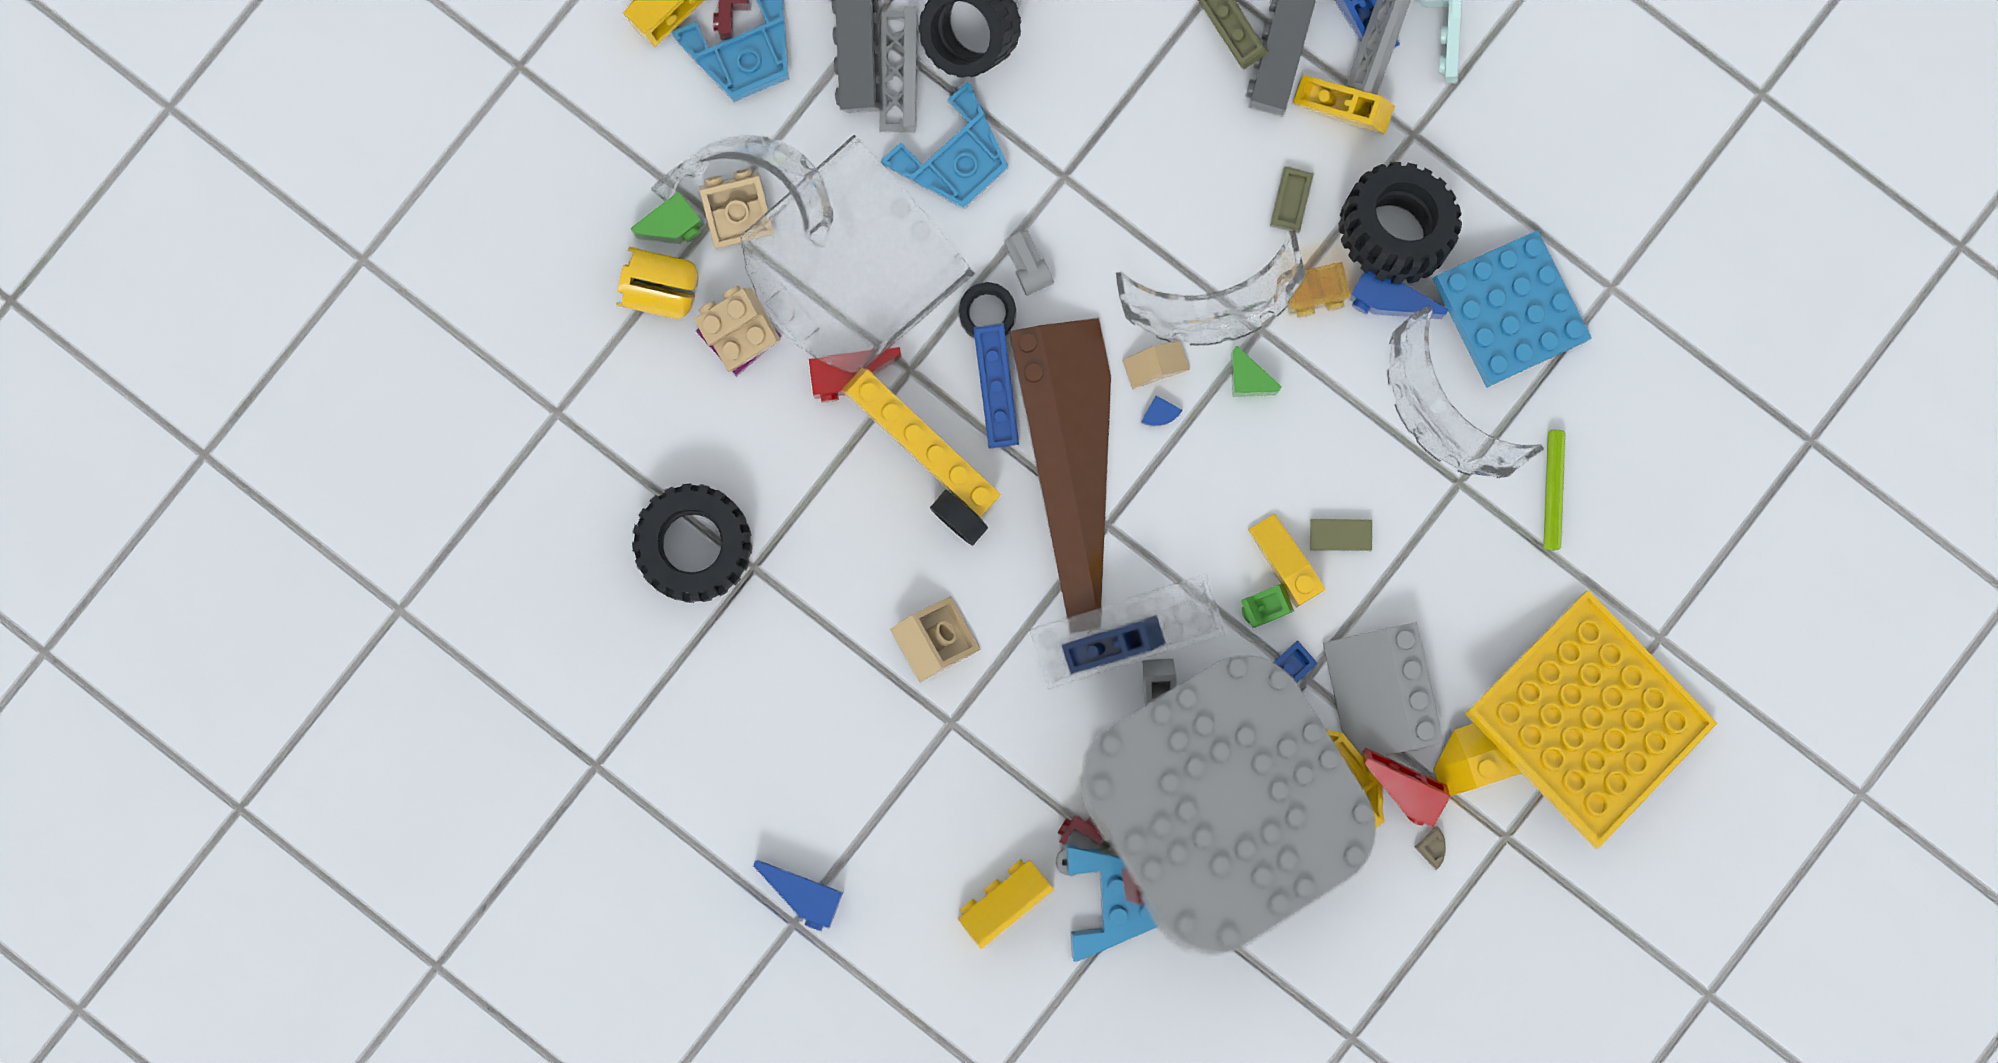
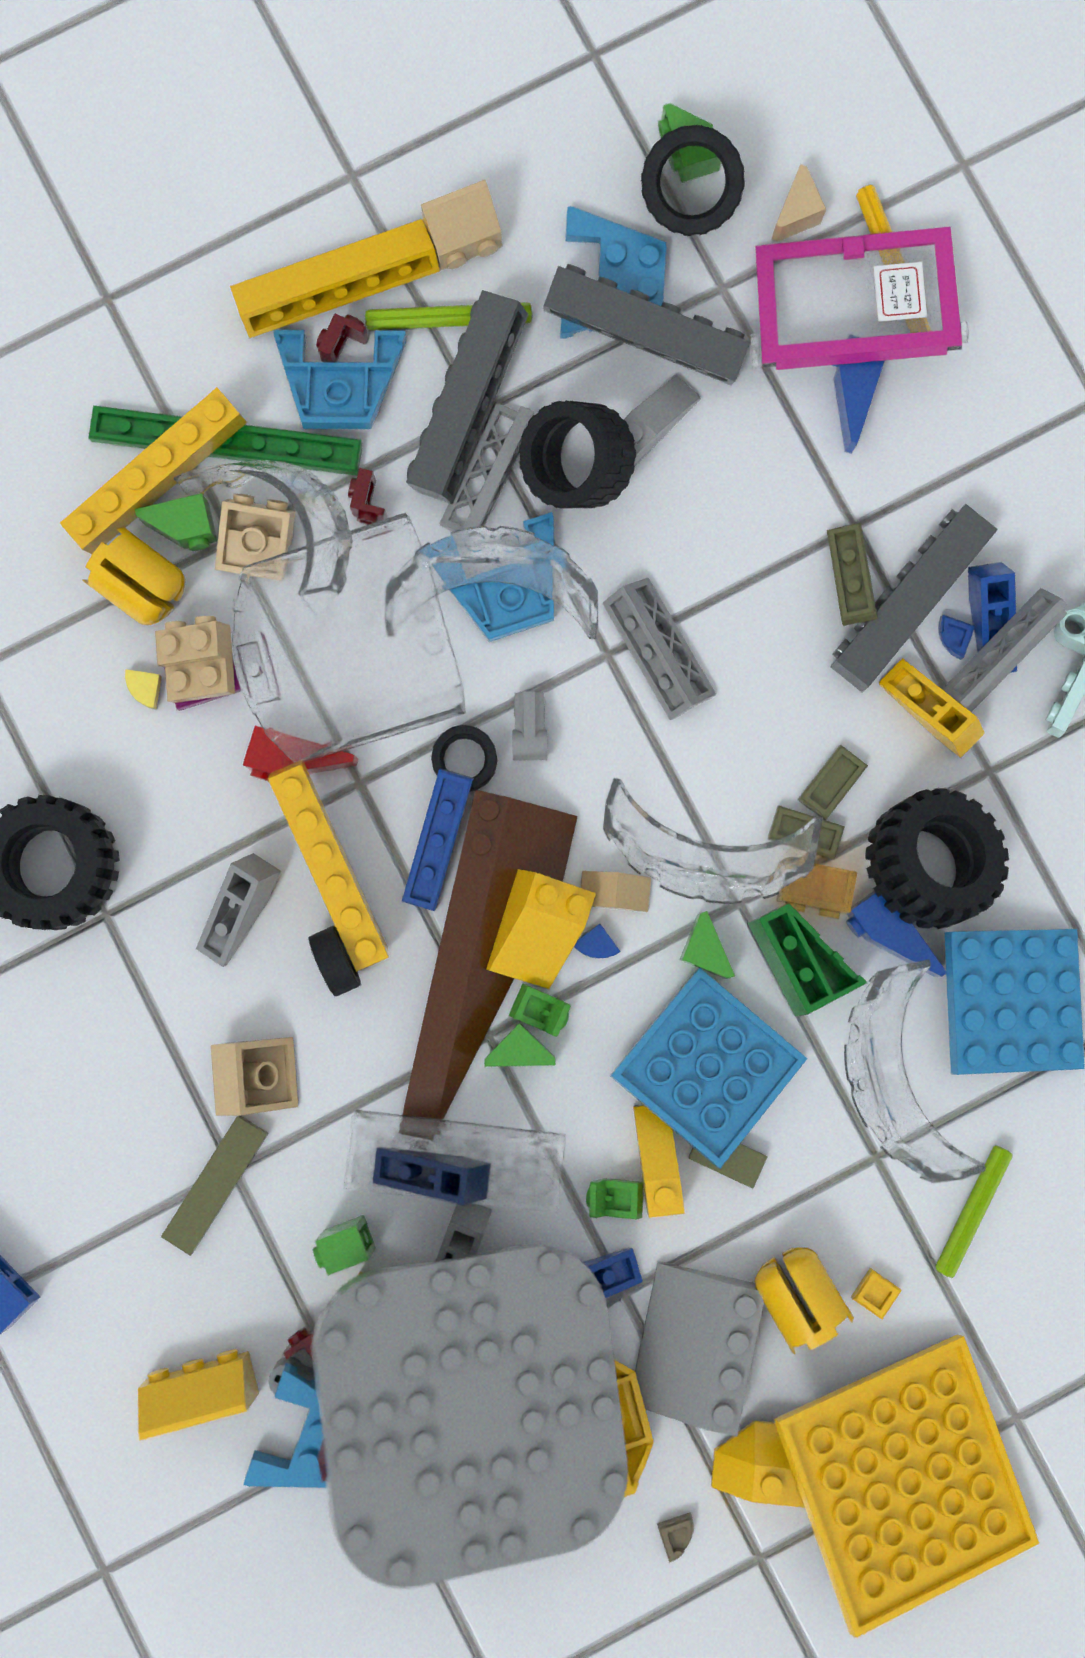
camera: 25 degrees right, 0 degrees up
(631, 190) = (153, 471): none -> yellow brick
(672, 140) = (248, 444): none -> green tile
(700, 370) = (144, 687): none -> light yellow tile
(804, 133) = (361, 492): none -> dark red bracket
(859, 512) = (237, 907): none -> light grey slope
(942, 136) = (491, 556): none -> clear windscreen
(942, 740) = (214, 1185): none -> olive tile
(1069, 736) = (344, 1245): none -> bright green brick
(1100, 155) = (654, 649): none -> light grey fence
(1110, 418) = (539, 928): none -> yellow slope
(1138, 522) = (519, 1049): none -> bright green slope
(1139, 484) = (540, 1010): none -> bright green bracket
(1270, 245) = (789, 821): none -> olive tile
(1294, 469) = (708, 1067): none -> dark azure plate
(1329, 352) = (801, 961): none -> green wedge
(1337, 37) = (955, 635): none -> blue tile
(1414, 792) = (681, 1471): slope -> none
(1454, 601) = (816, 1289): none -> yellow cylinder
(1506, 589) = (876, 1293): none -> yellow tile

